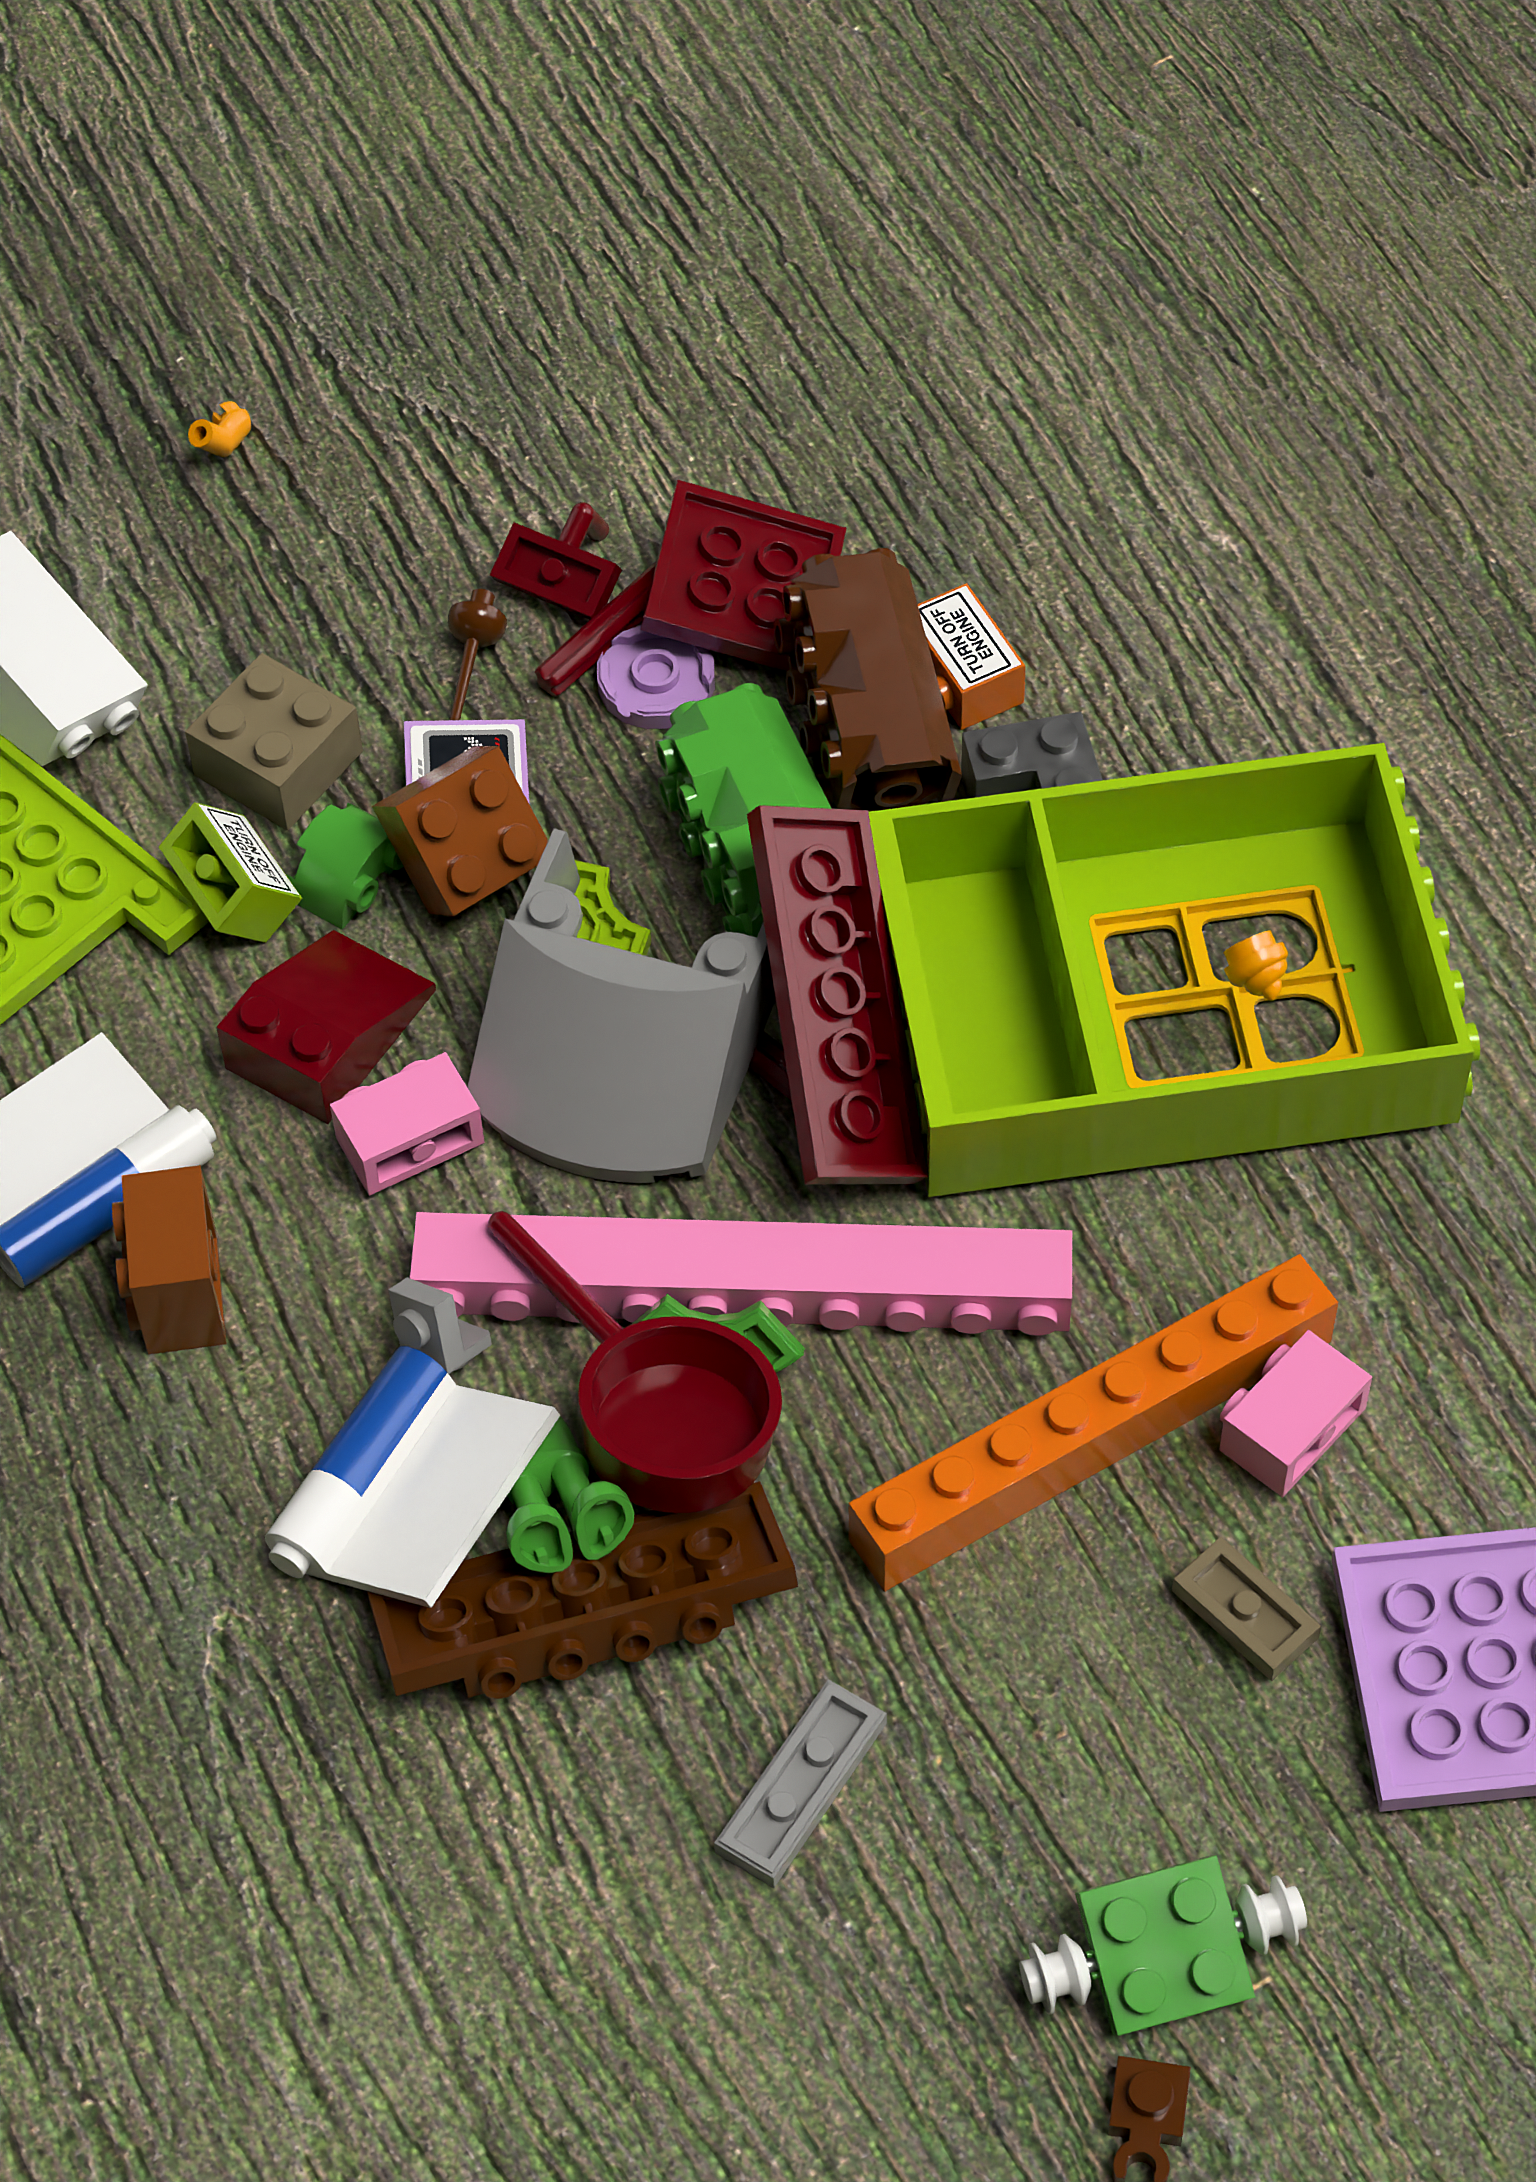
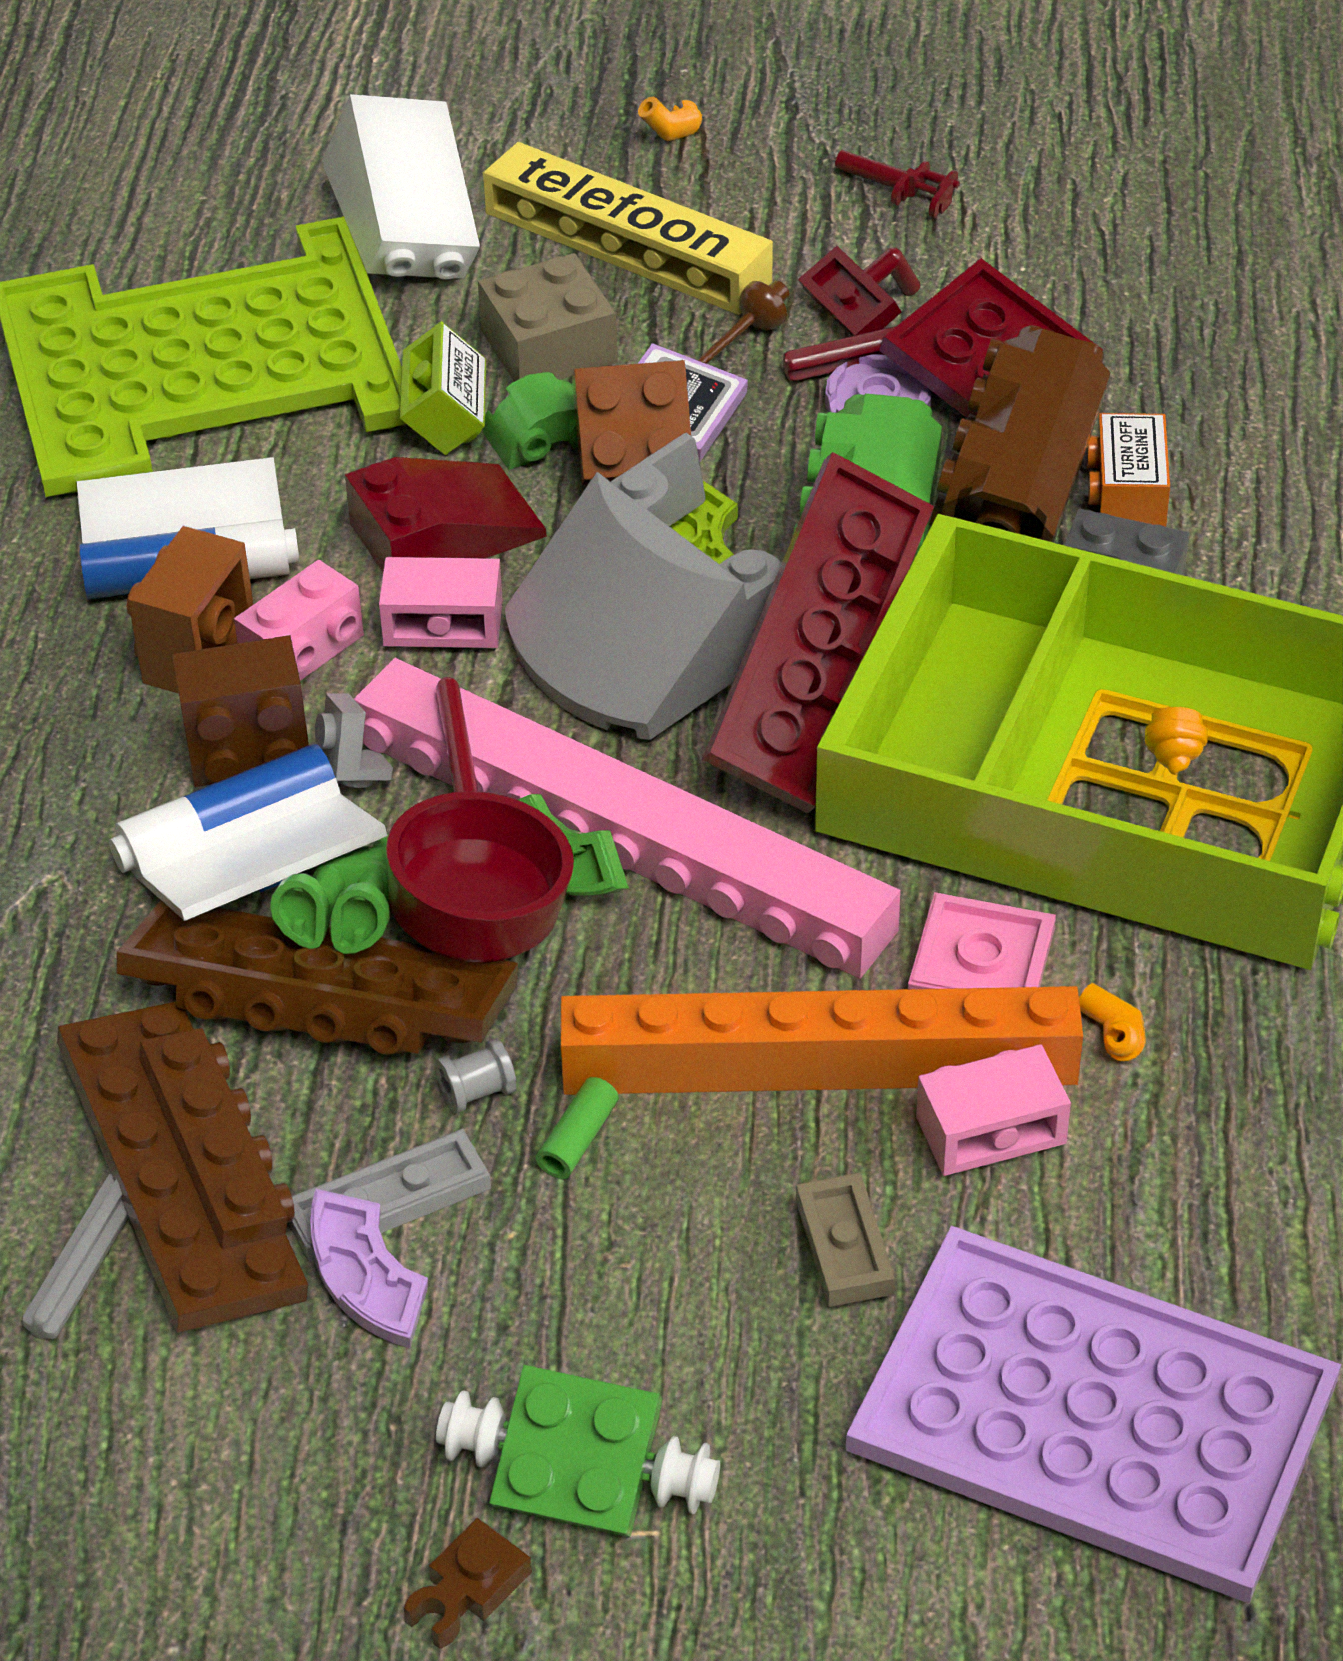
camera: 30 degrees right, 10 degrees down
(271, 587) = (626, 226): none -> light yellow brick
(282, 1219) = (314, 608): none -> bright pink brick
(308, 1347) = (240, 706): none -> reddish brown brick
(503, 404) = (903, 182): none -> dark red piece
(565, 1998) = (77, 1263): none -> light grey axle
(594, 1851) = (186, 1164): none -> reddish brown plate
(803, 1619) = (475, 1075): none -> light grey bush
(840, 1873) = (361, 1270): none -> lavender tile
(930, 1622) = (577, 1128): none -> bright green hinge
(1165, 1252) = (981, 945): none -> bright pink tile
(1335, 1262) = (1120, 1020): none -> light orange arm

